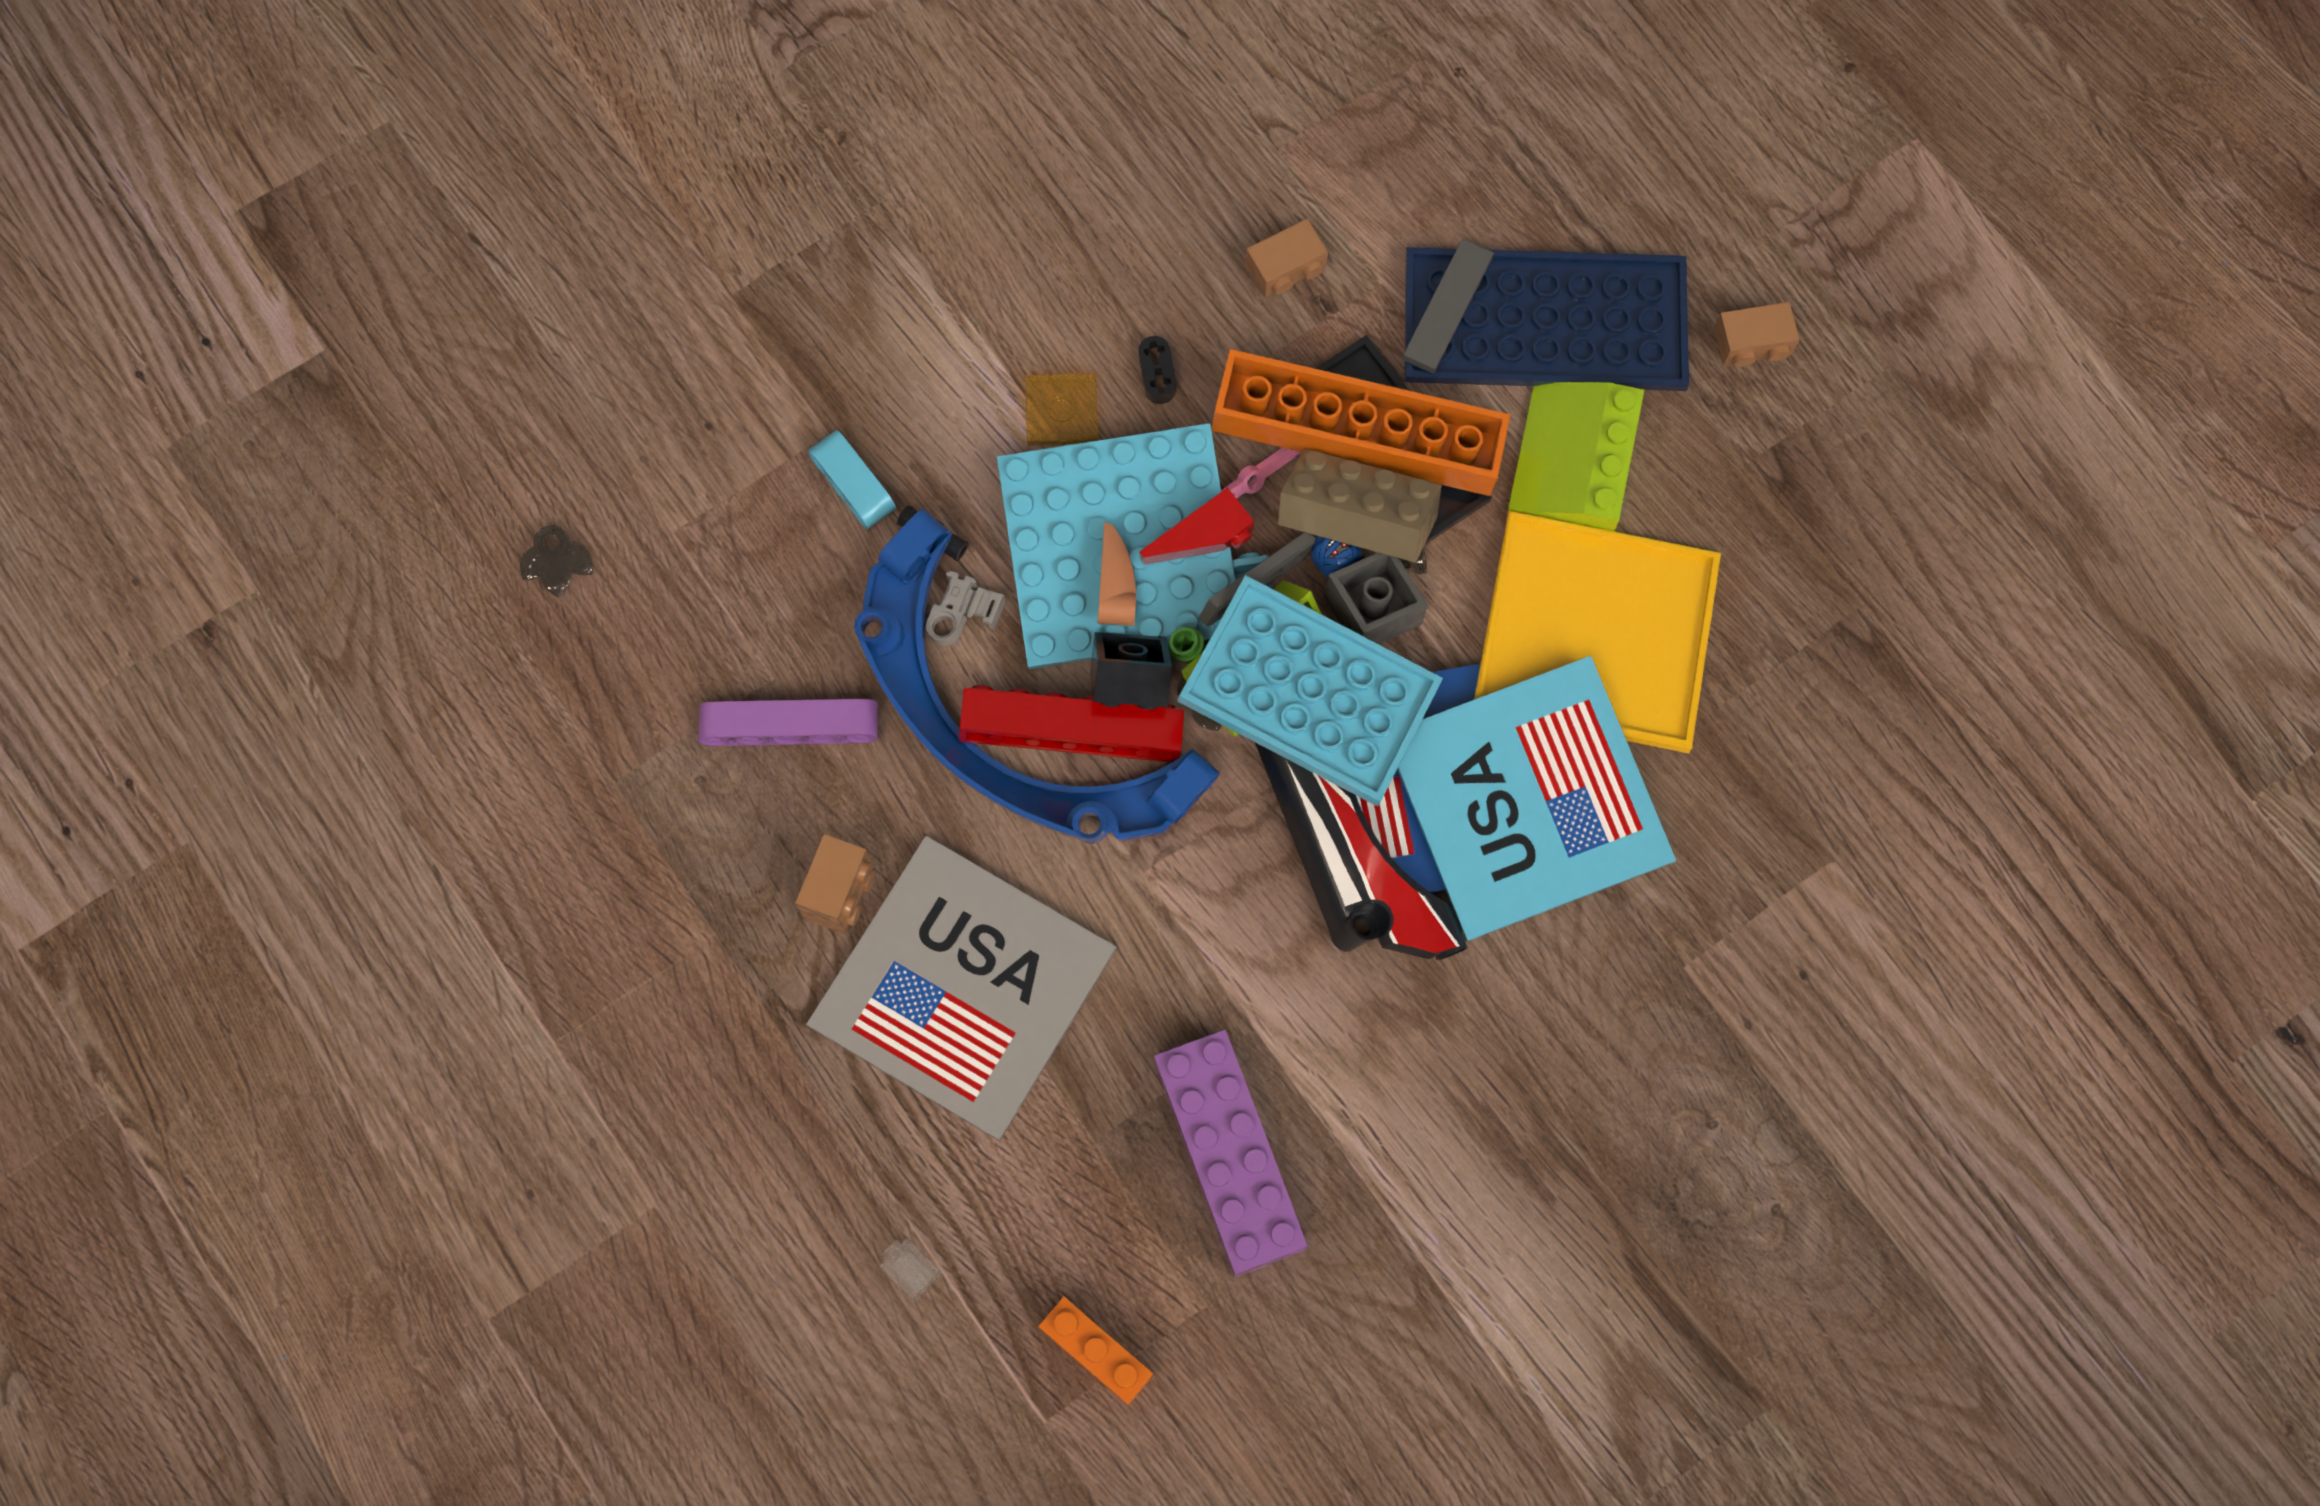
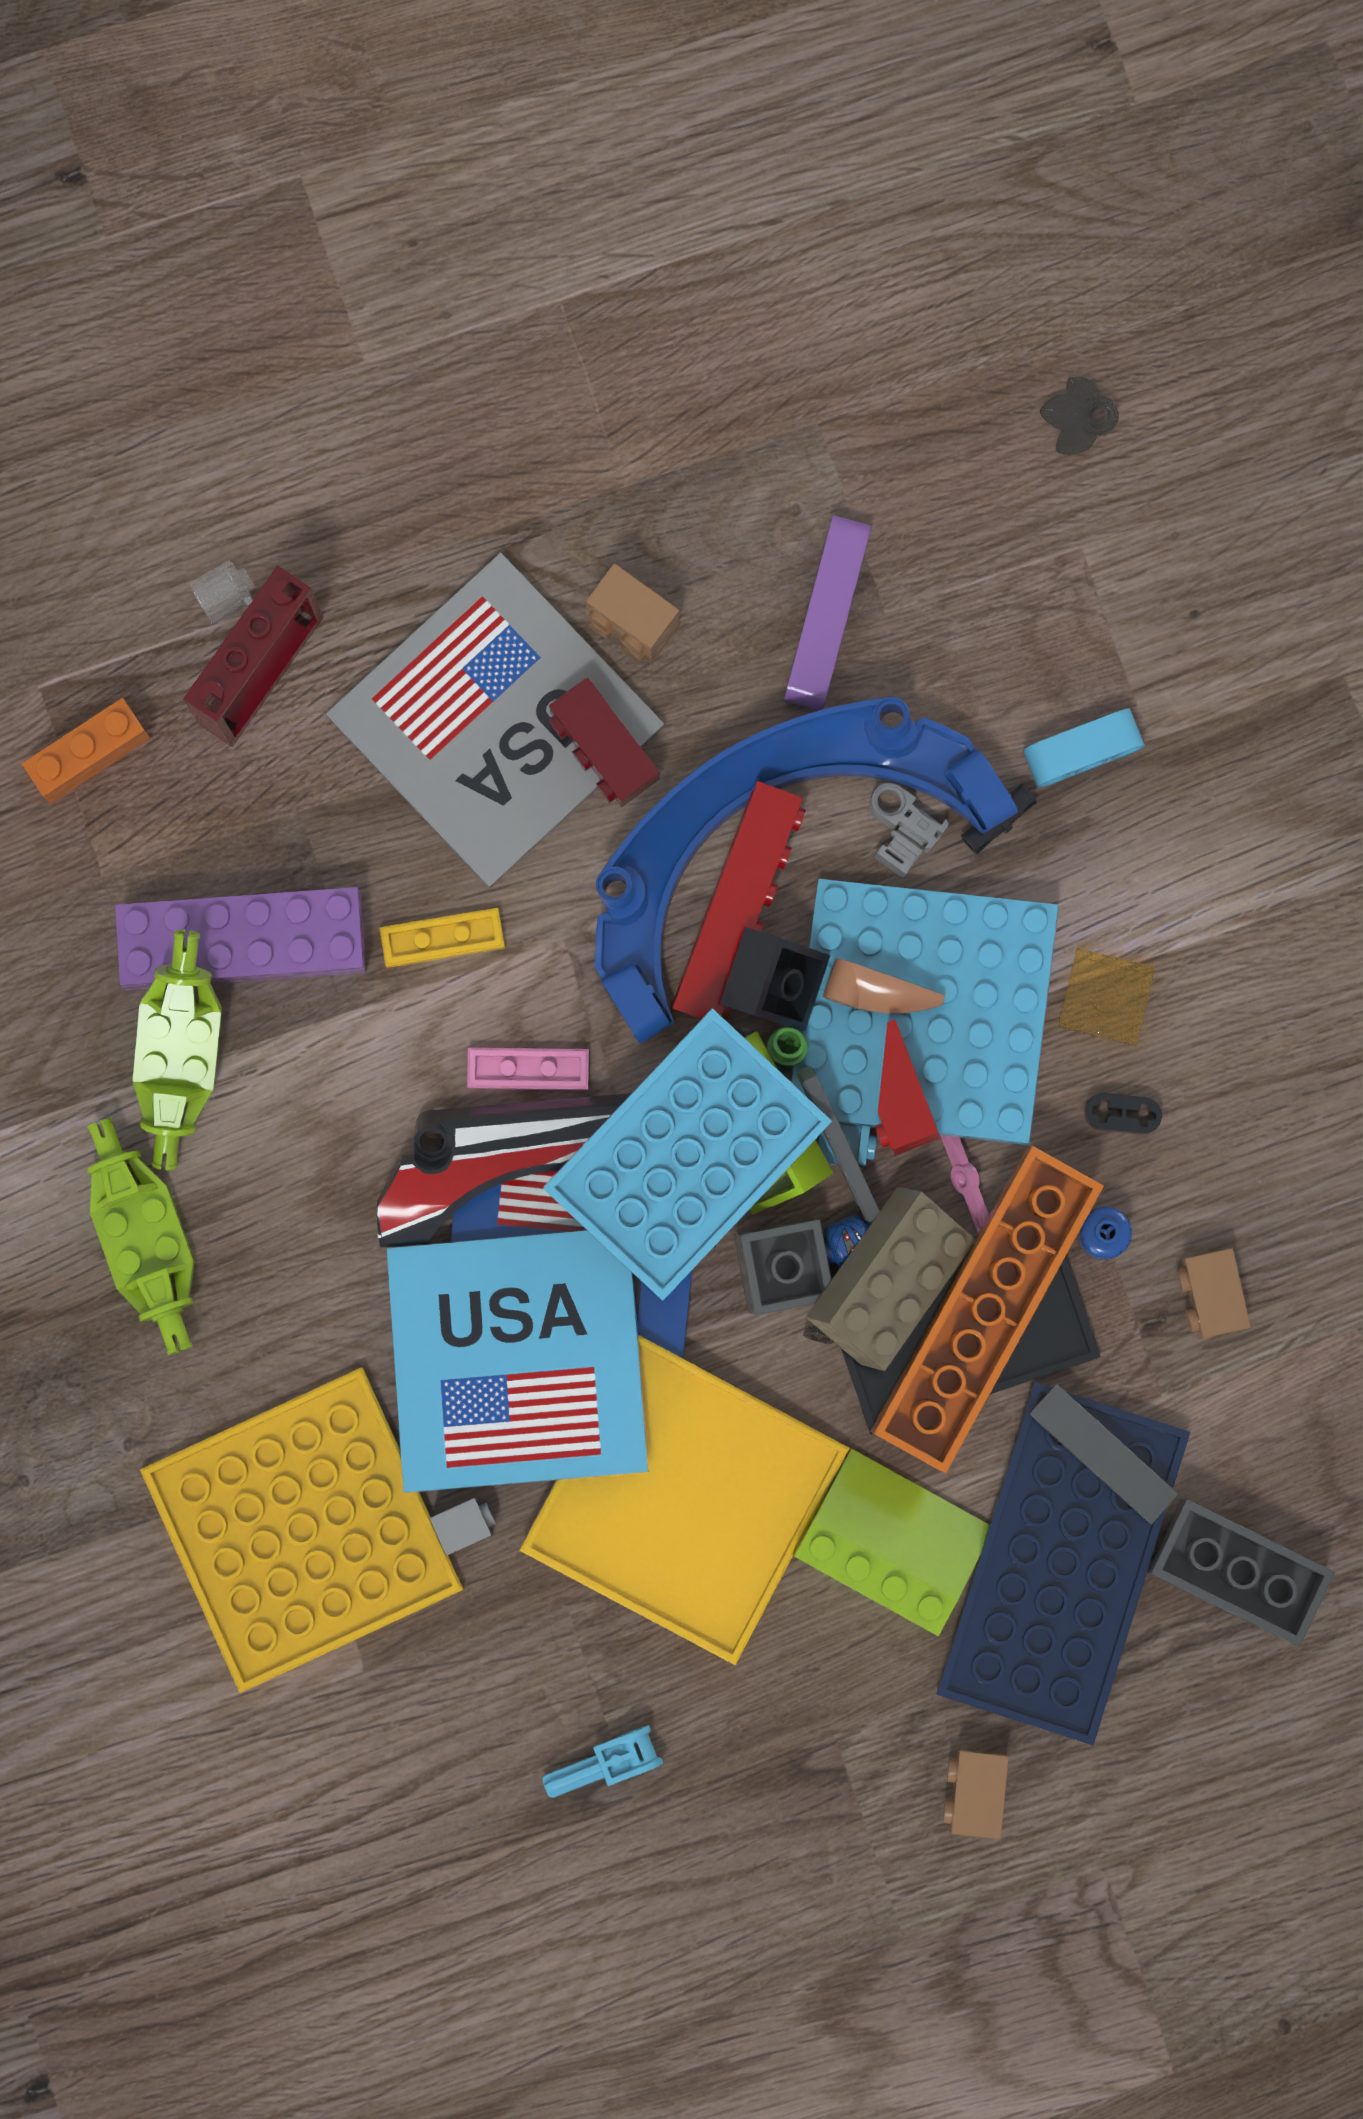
camera: 105 degrees right, 10 degrees up
(960, 878) = (602, 743): none -> dark red brick
(967, 1206) = (254, 656): none -> dark red window
(1173, 977) = (442, 937): none -> yellow tile
(1266, 343) = (1107, 1248): none -> blue head
(1268, 868) = (528, 1069): none -> bright pink tile
(1351, 1177) = (176, 1049): none -> lime plate
(1509, 178) = (1240, 1572): none -> dark grey brick
(1527, 1164) = (141, 1236): none -> lime plate
(1684, 807) = (463, 1525): none -> light grey brick
(1734, 949) = (300, 1530): none -> yellow tile
(1835, 627) = (614, 1761): none -> medium azure connector

